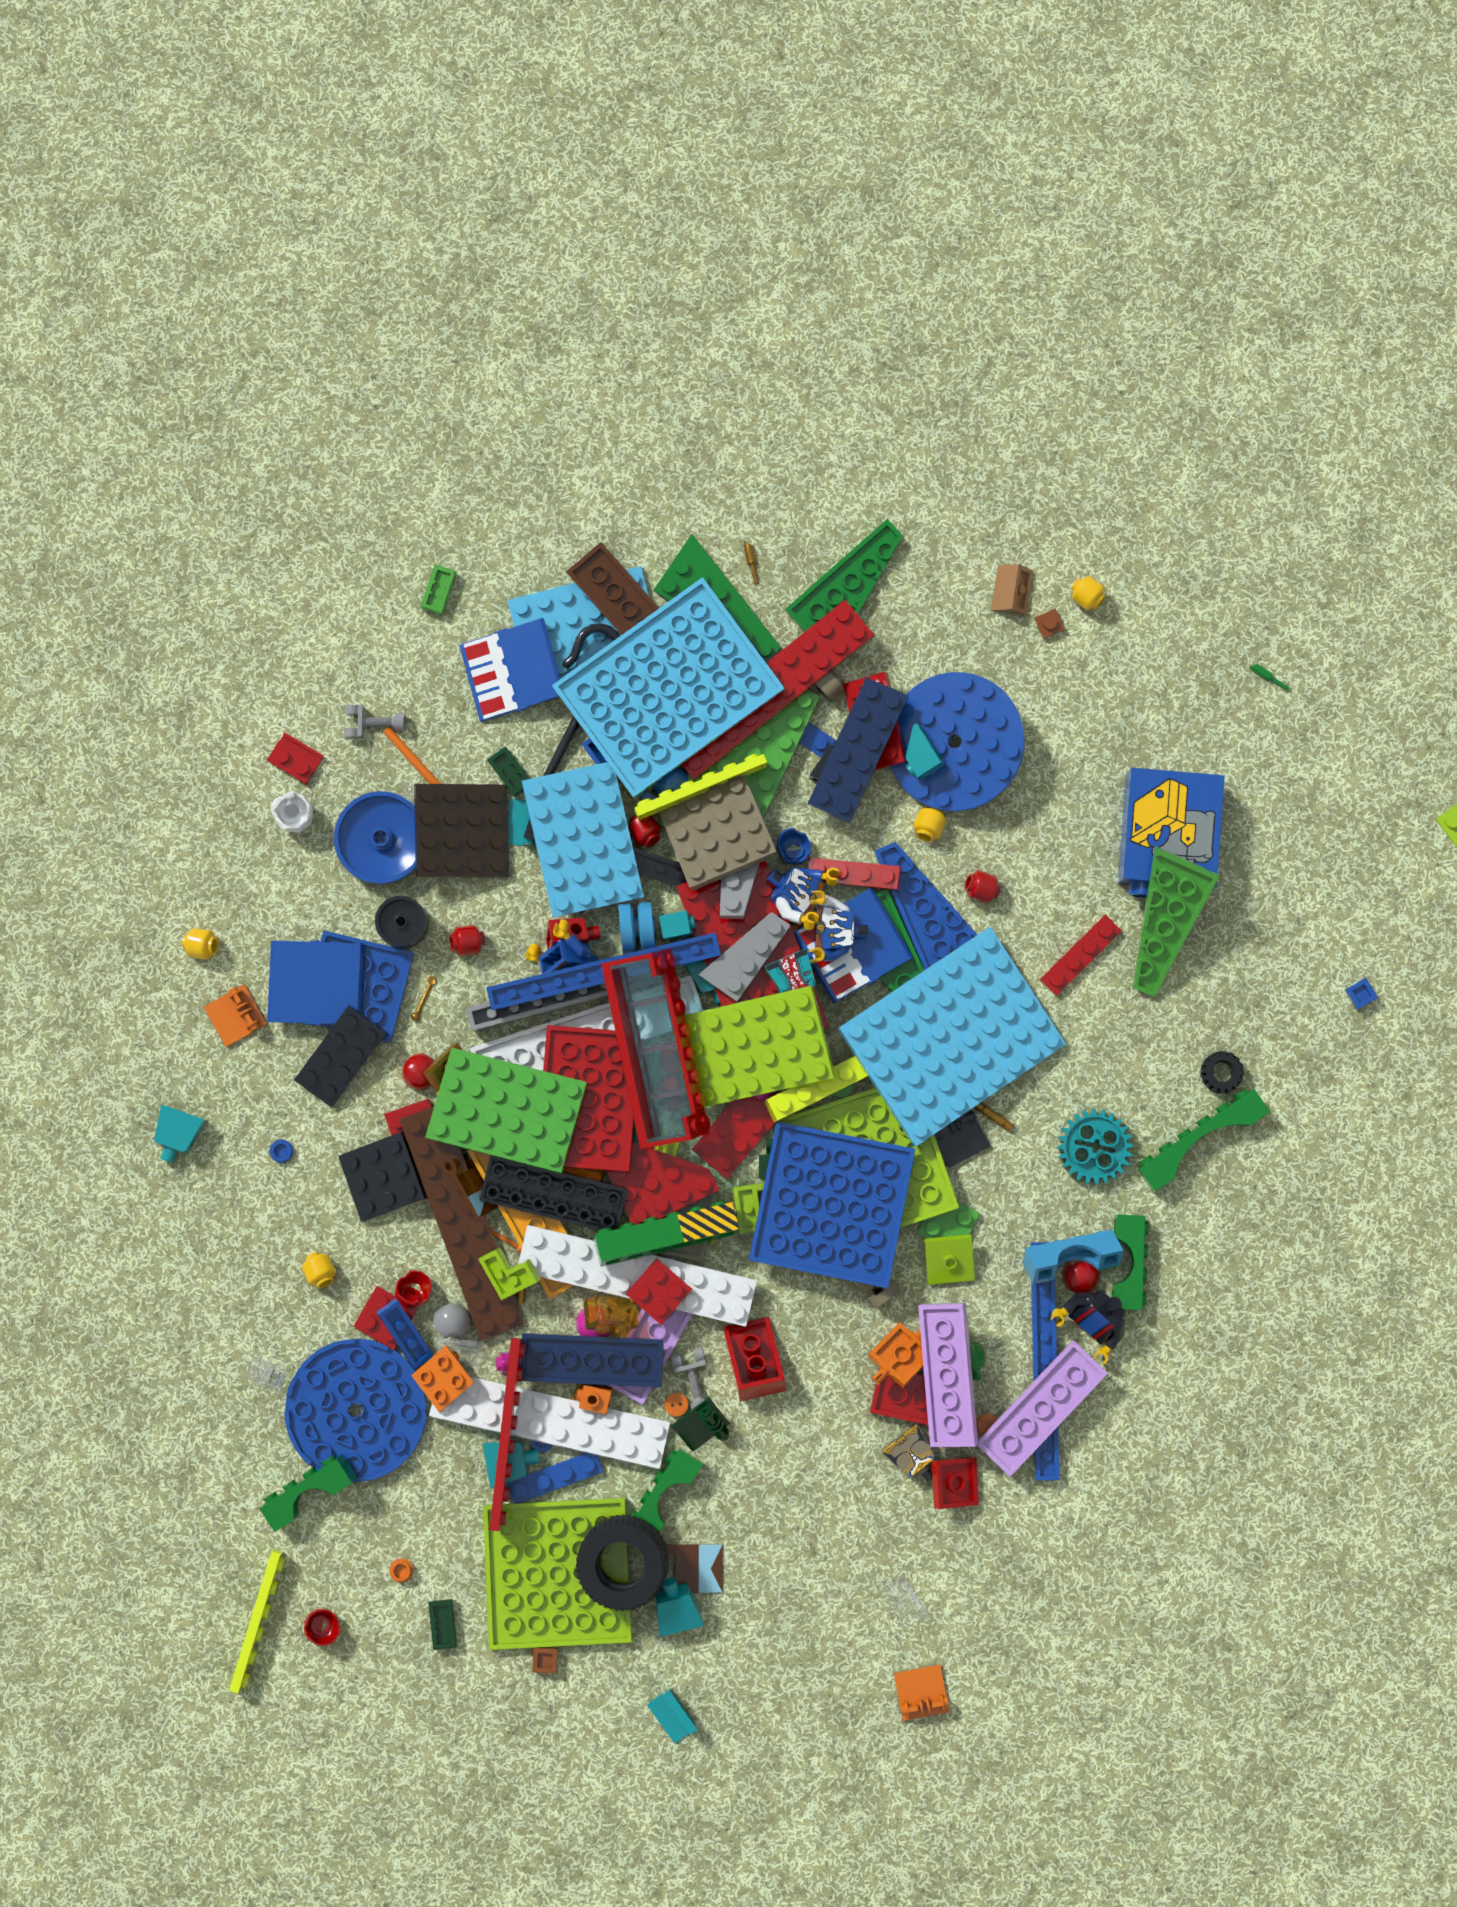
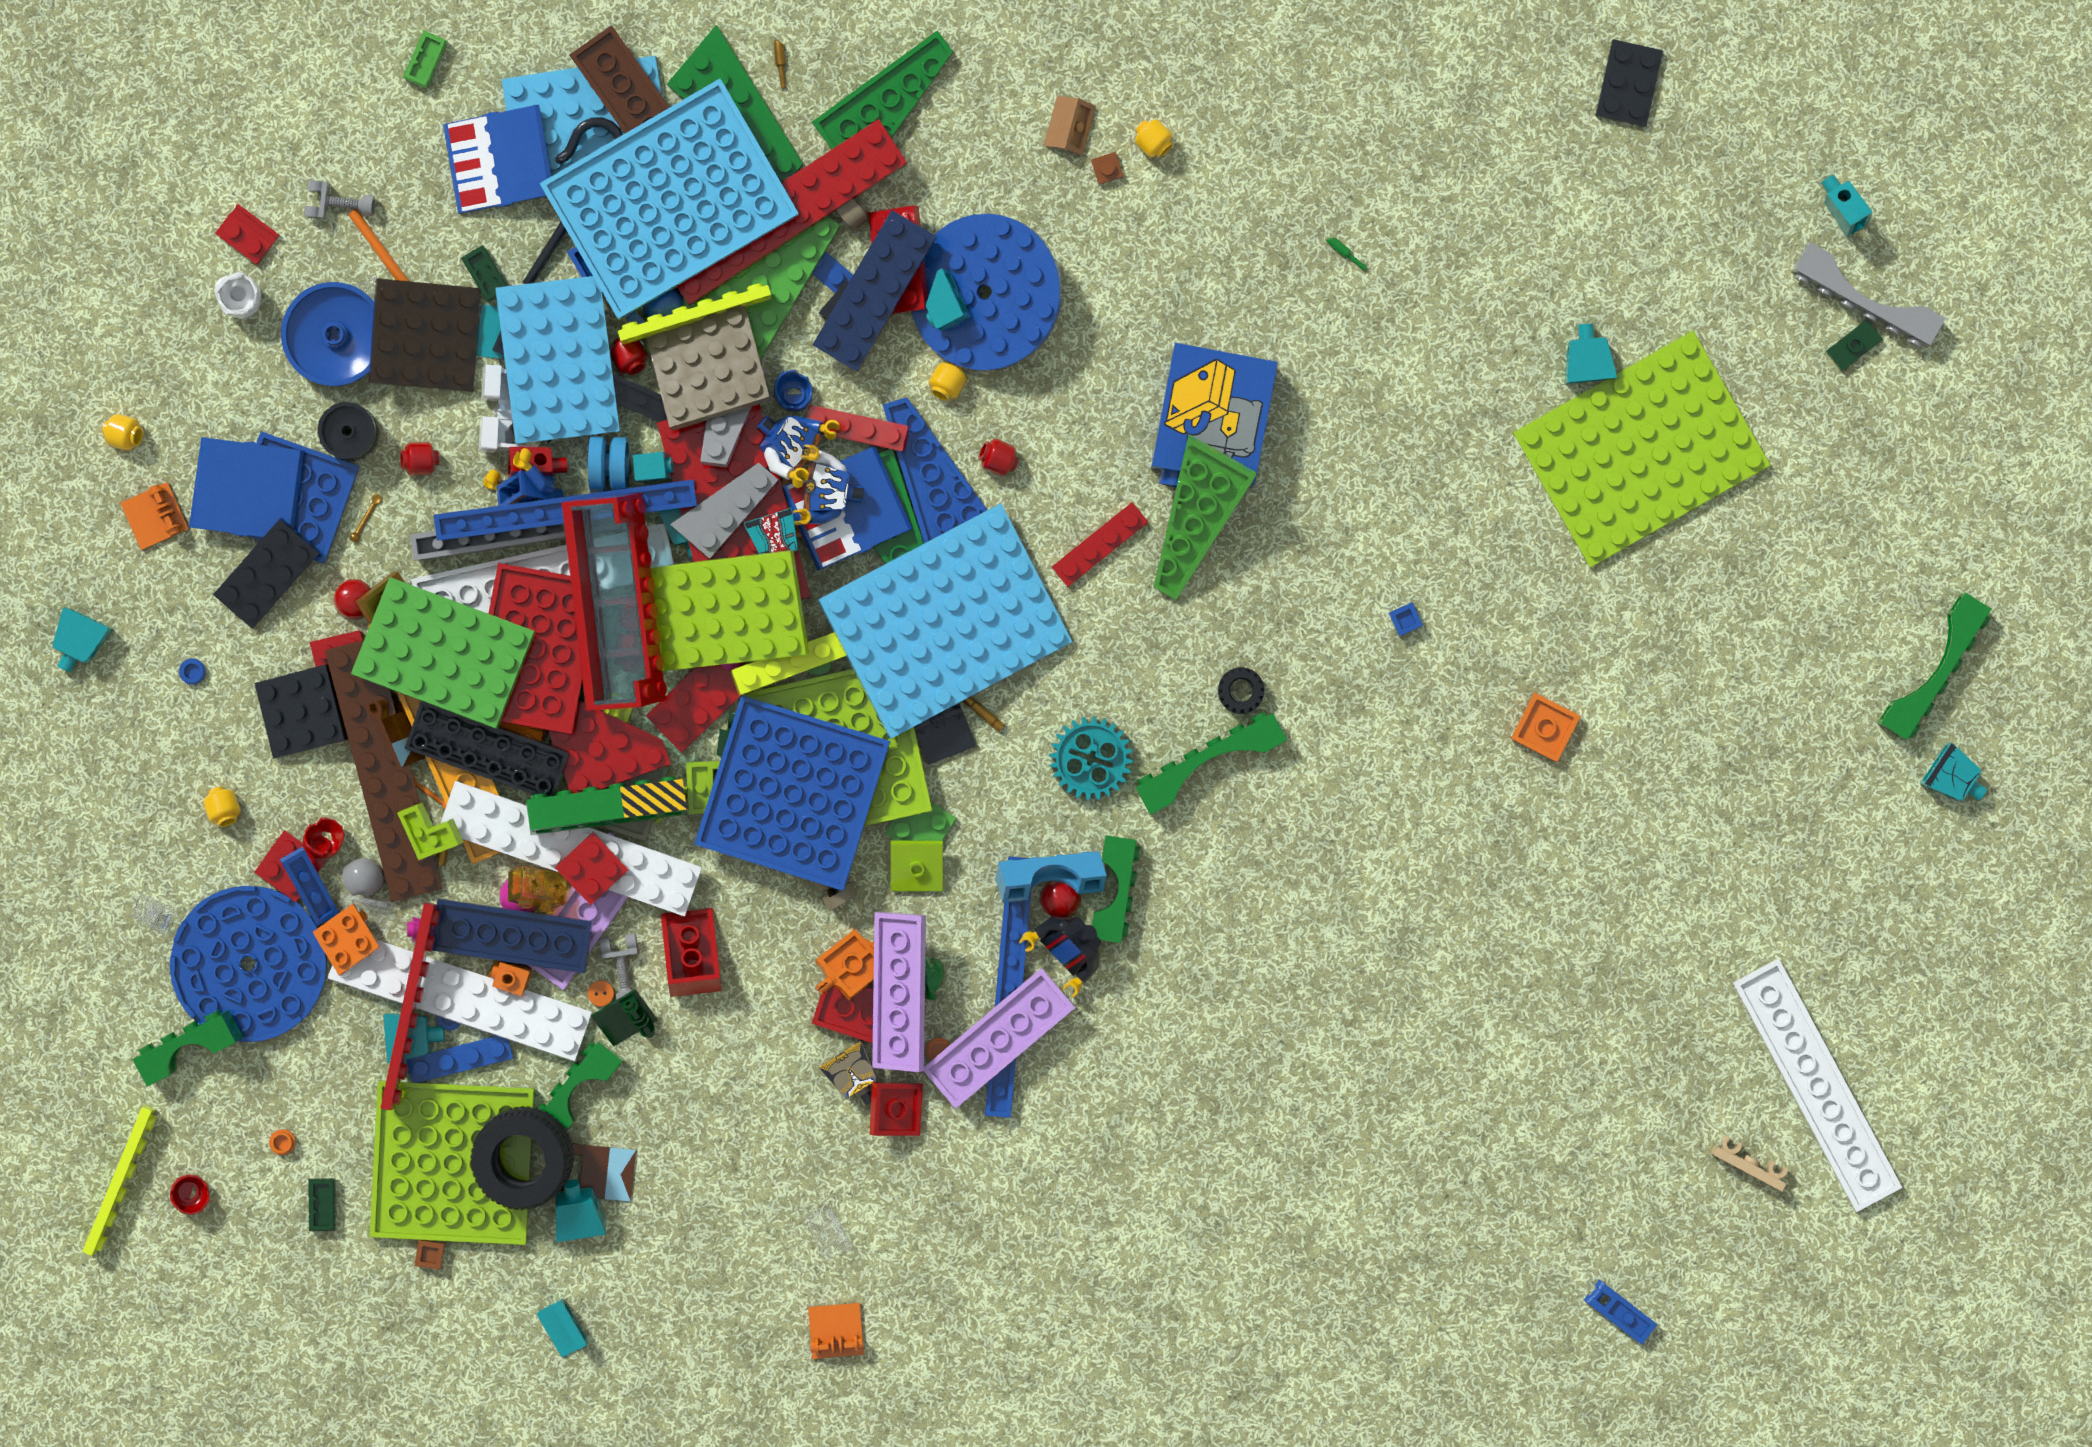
camera: 10 degrees right, 5 degrees up
(531, 909) = (496, 431): none -> white piece

